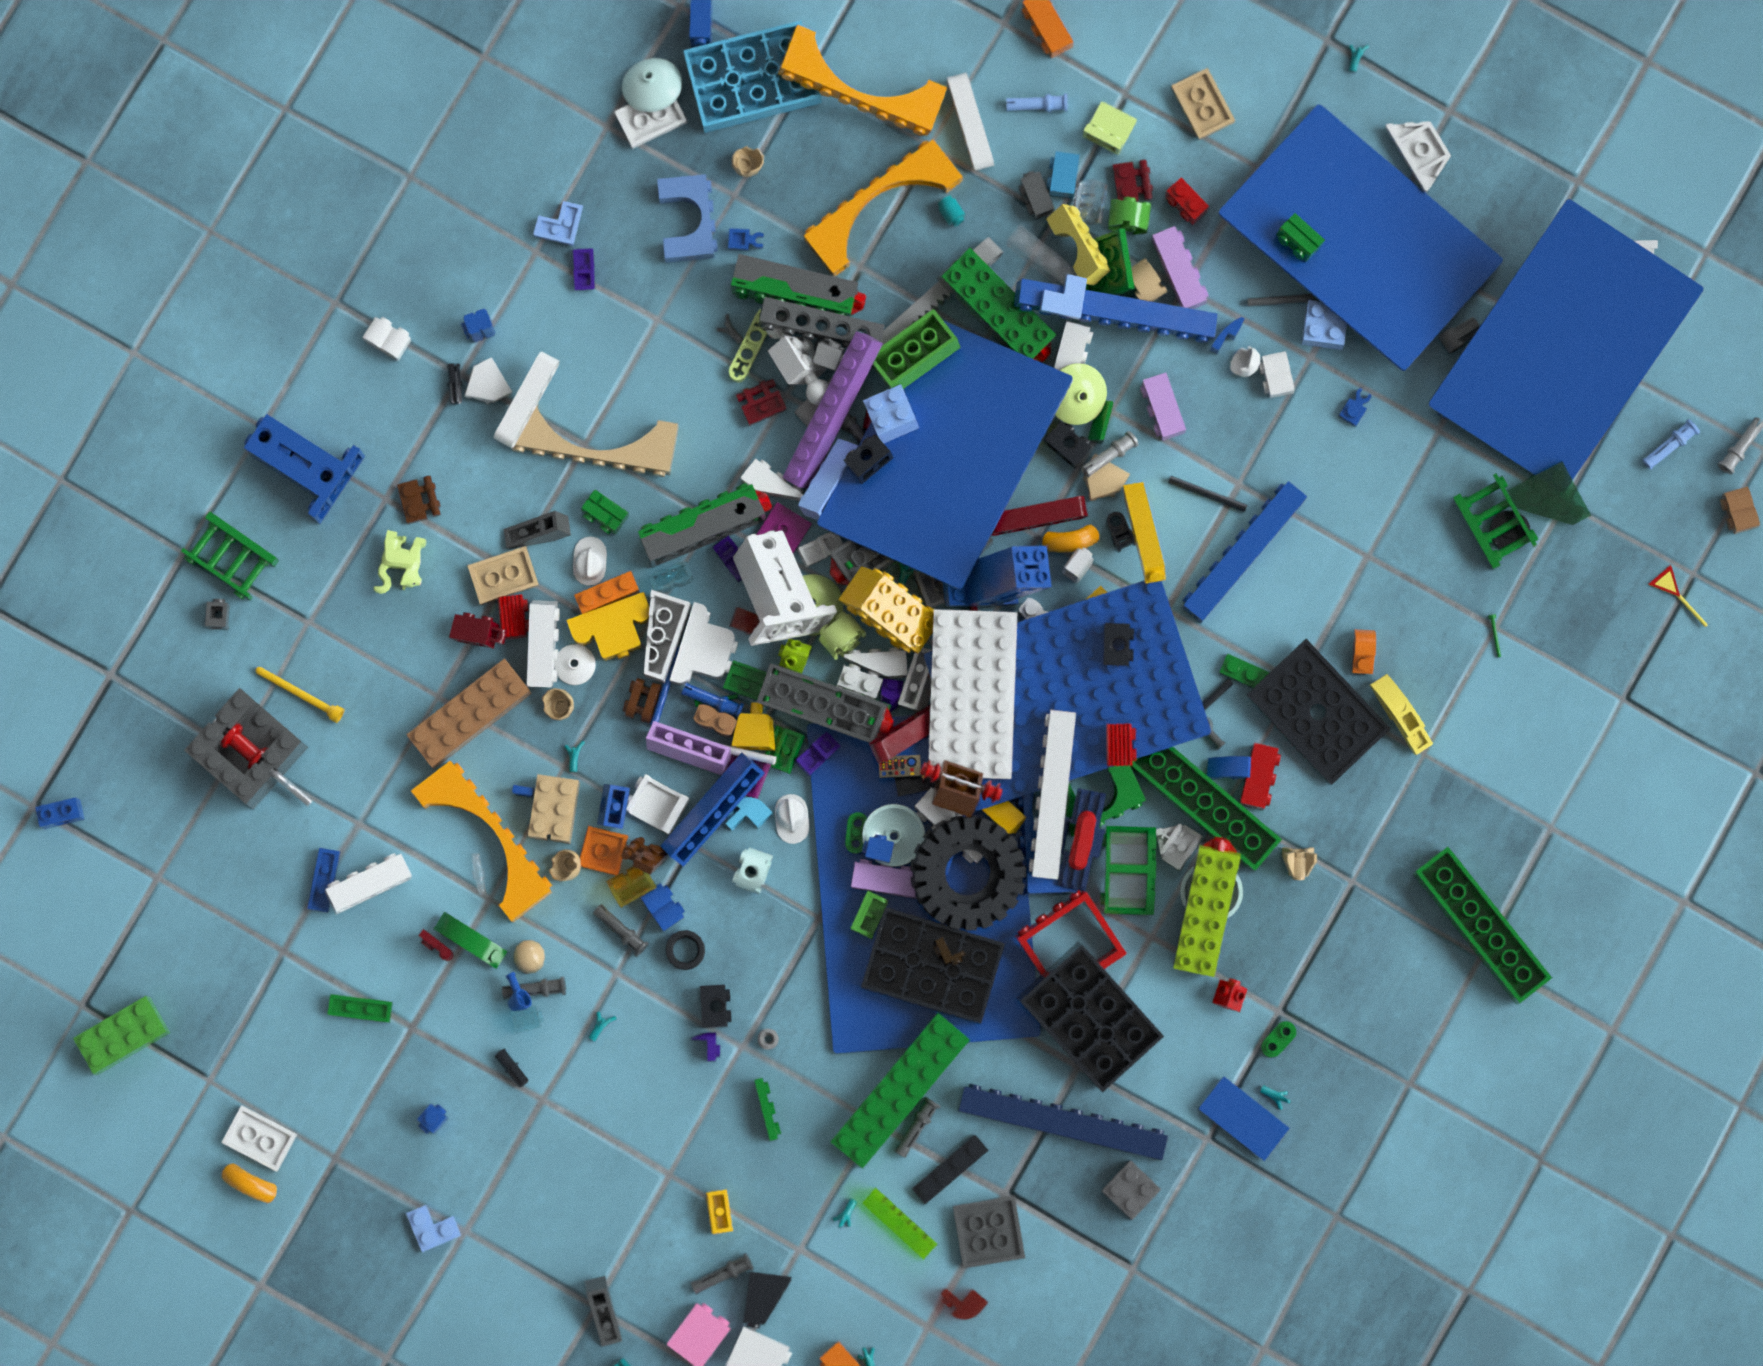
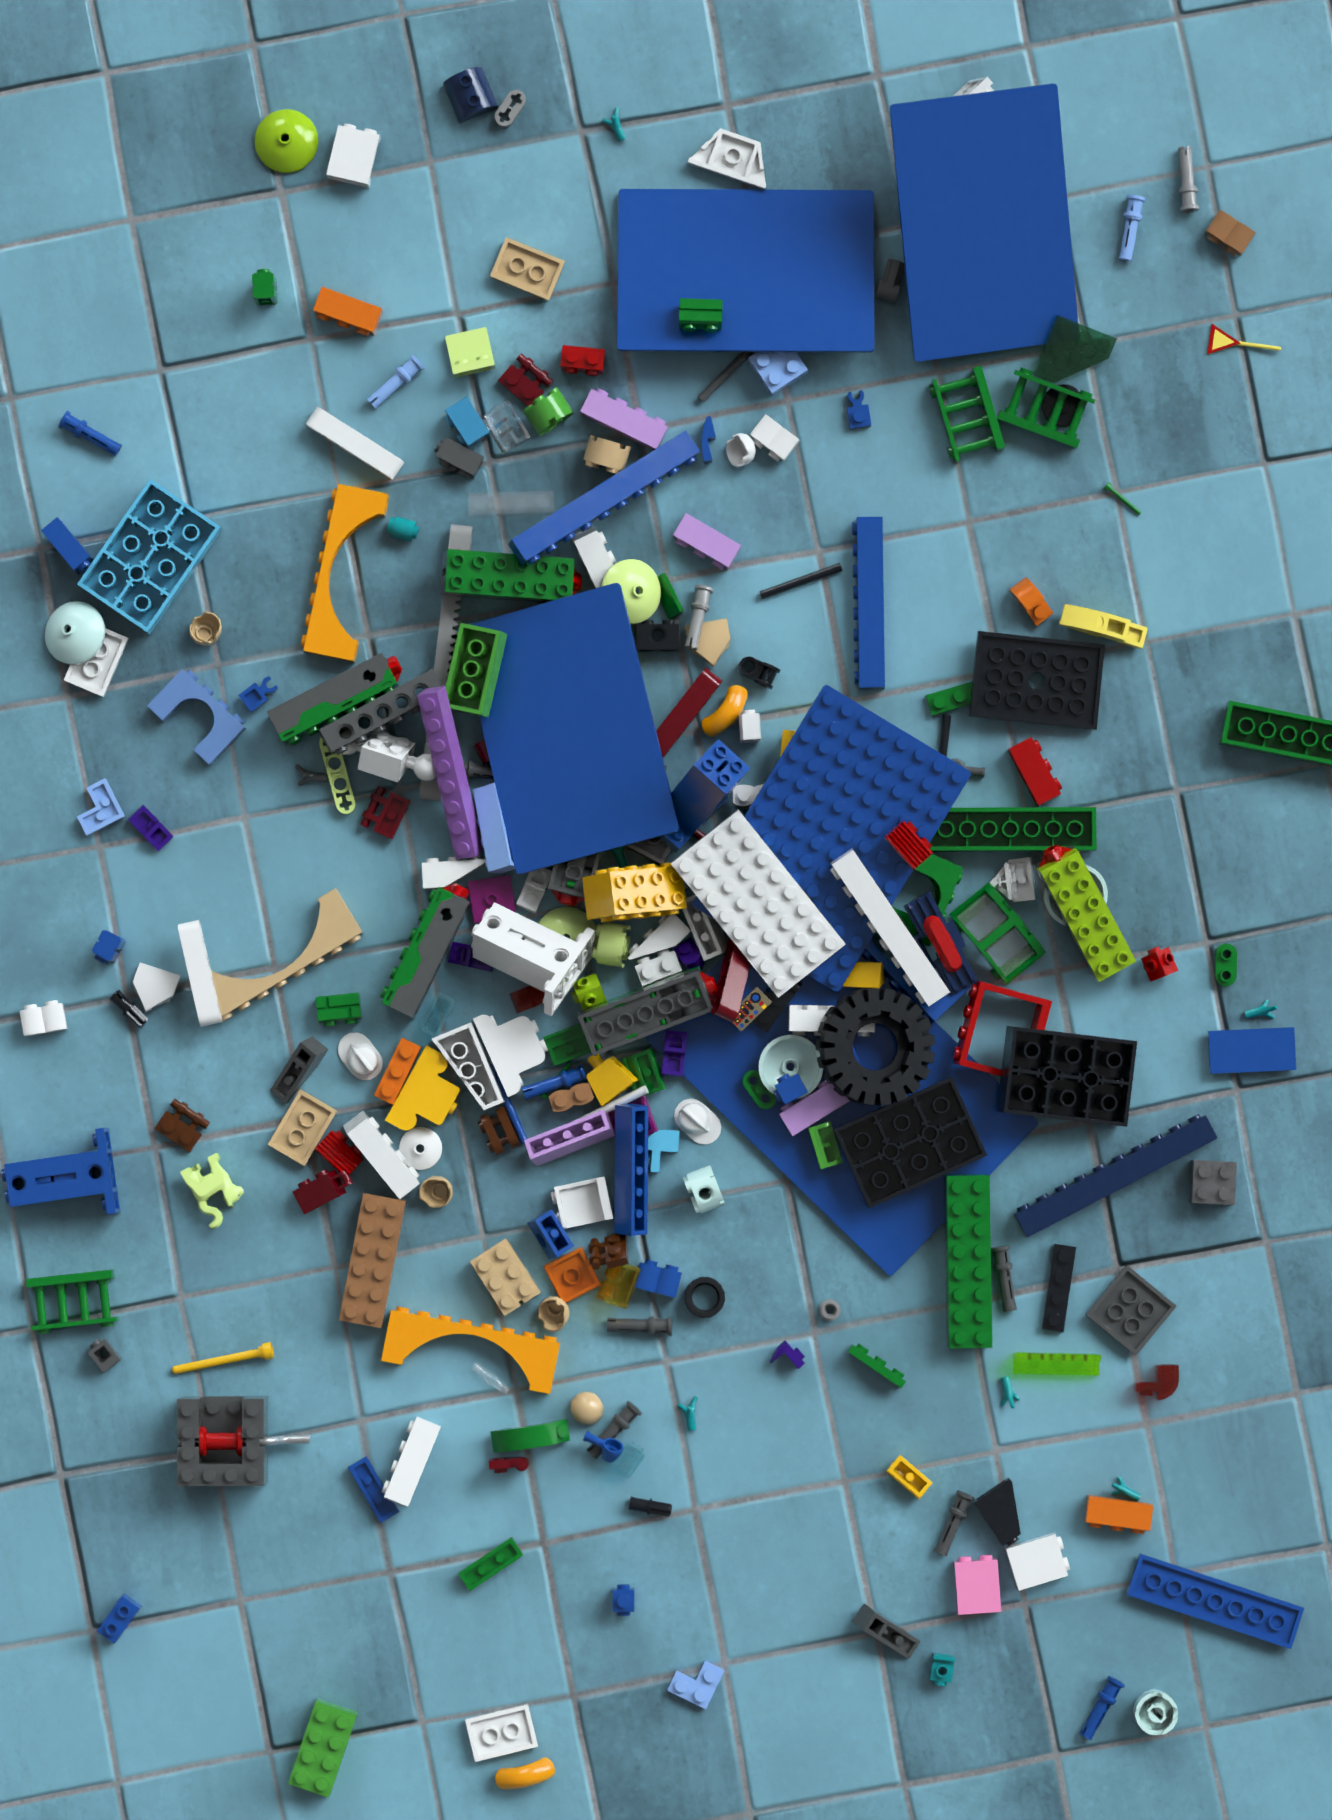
camera: 40 degrees left, 5 degrees up
(523, 791) = (469, 1283): blue tile -> none
(573, 756) = (483, 1221): teal bar -> none
(715, 1019) = (770, 1333): black brick -> none
(806, 66) = (189, 513): light orange arch -> none
(829, 354) = (410, 731): light grey brick -> none
(865, 469) = (518, 798): black brick -> none
(891, 414) = (500, 735): light blue brick -> none
(942, 951) = (909, 1125): dark brown bracket -> none
(958, 787) = (811, 987): reddish brown brick -> none
(1070, 302) = (565, 525): light blue tile -> none
(1089, 261) = (551, 477): light yellow arch -> none
(1111, 655) = (845, 779): black brick -> none
(1115, 250) = (565, 467): green plate -> none
(1144, 532) = (781, 658): yellow brick -> none
(1229, 767) = (1004, 785): blue slope -> none
(1299, 861) = (1123, 811): tan brick -> none
(1444, 493) = (983, 400): none -> green fence

